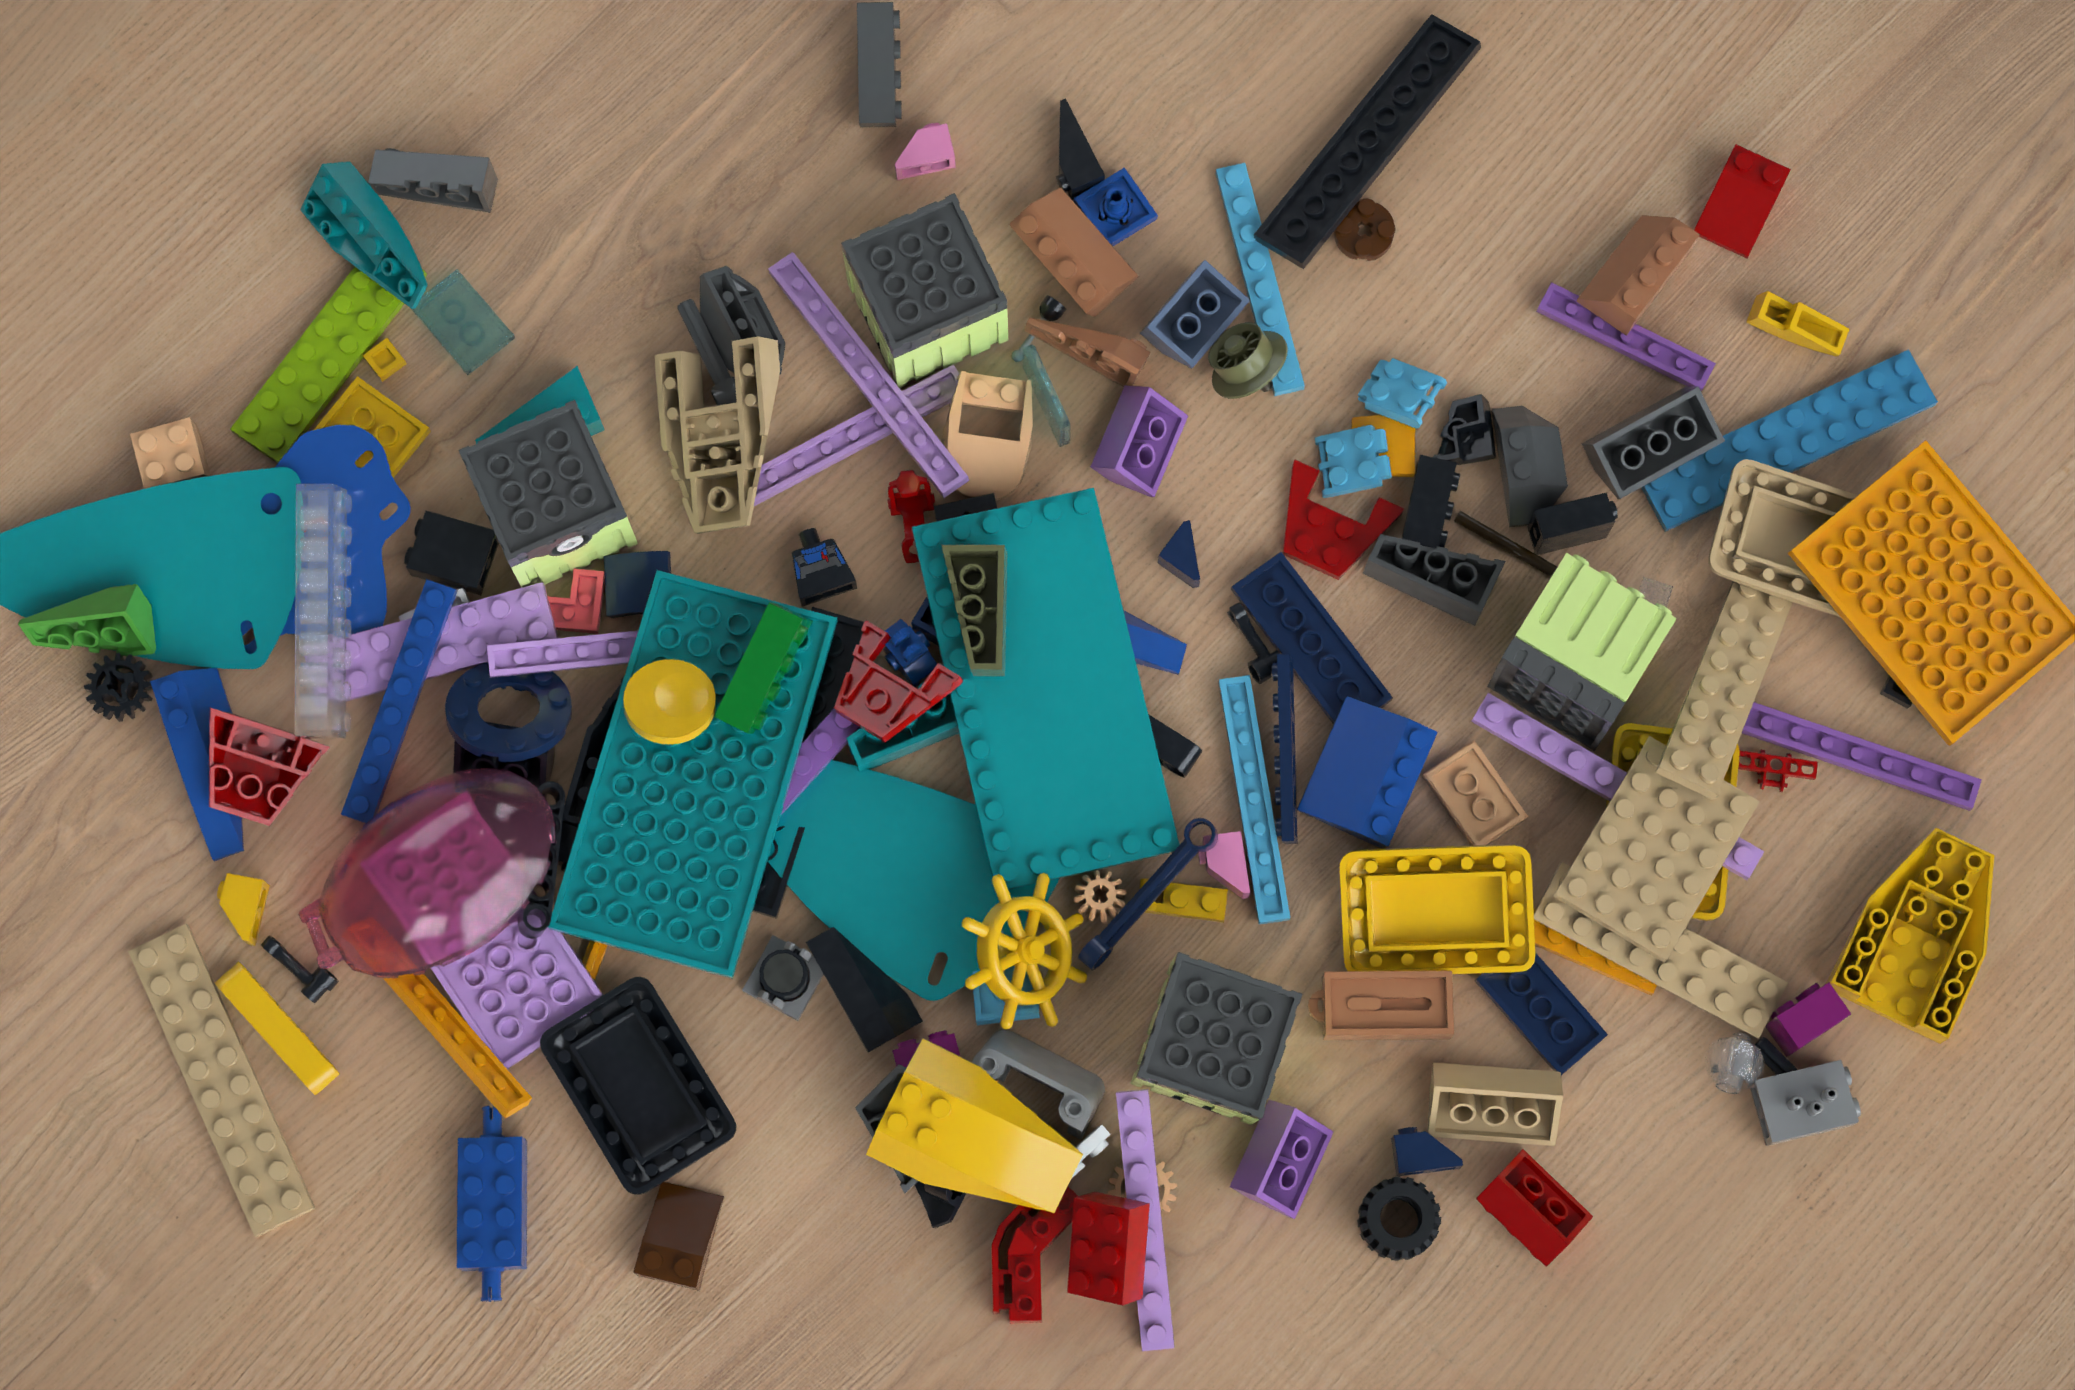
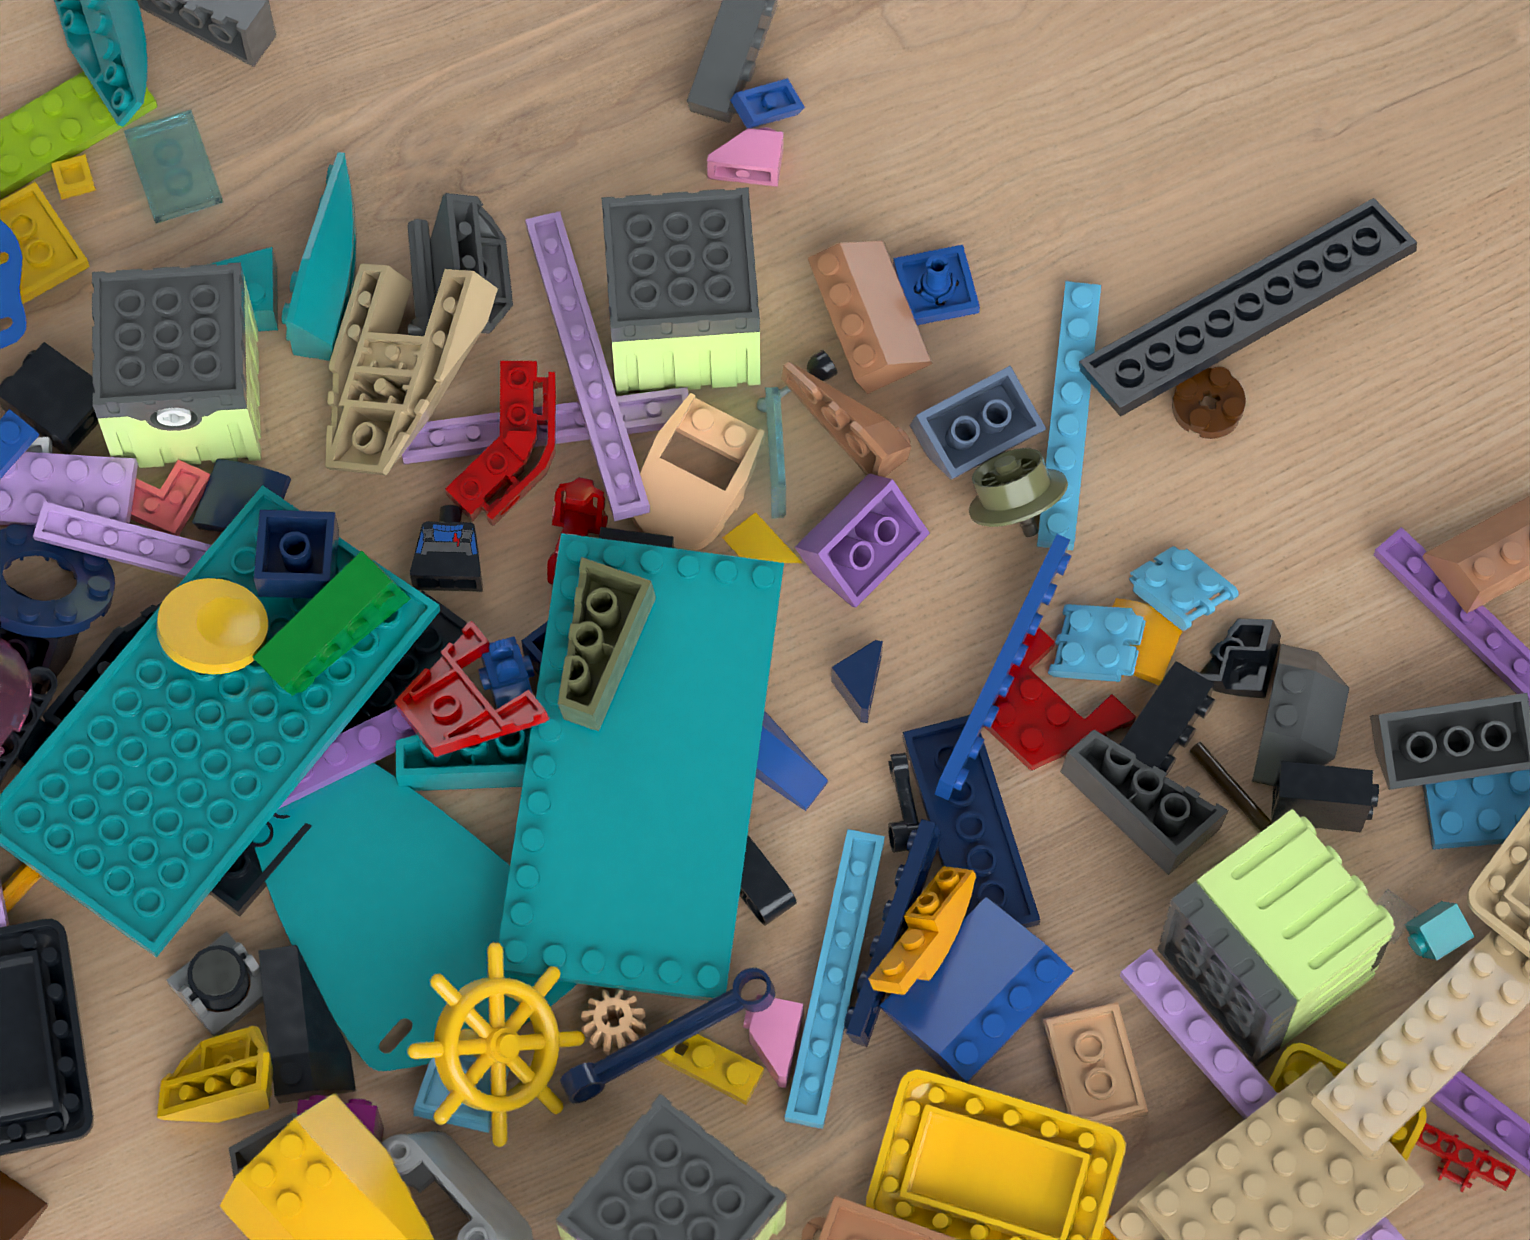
camera: 20 degrees right, 10 degrees down
(631, 381) = (325, 272): none -> teal wedge
(712, 619) = (295, 553): none -> dark blue brick
(819, 1053) = (219, 1080): none -> yellow wedge
(840, 462) = (509, 453): none -> red brick
(923, 102) = (767, 103): none -> blue plate
(1058, 471) = (758, 541): none -> yellow sticker
(1077, 162) = (911, 217): black slope -> none
(1291, 520) = (999, 678): none -> blue plate
(1316, 738) = (931, 931): none -> light orange slope
(1694, 597) = (1438, 931): none -> brick

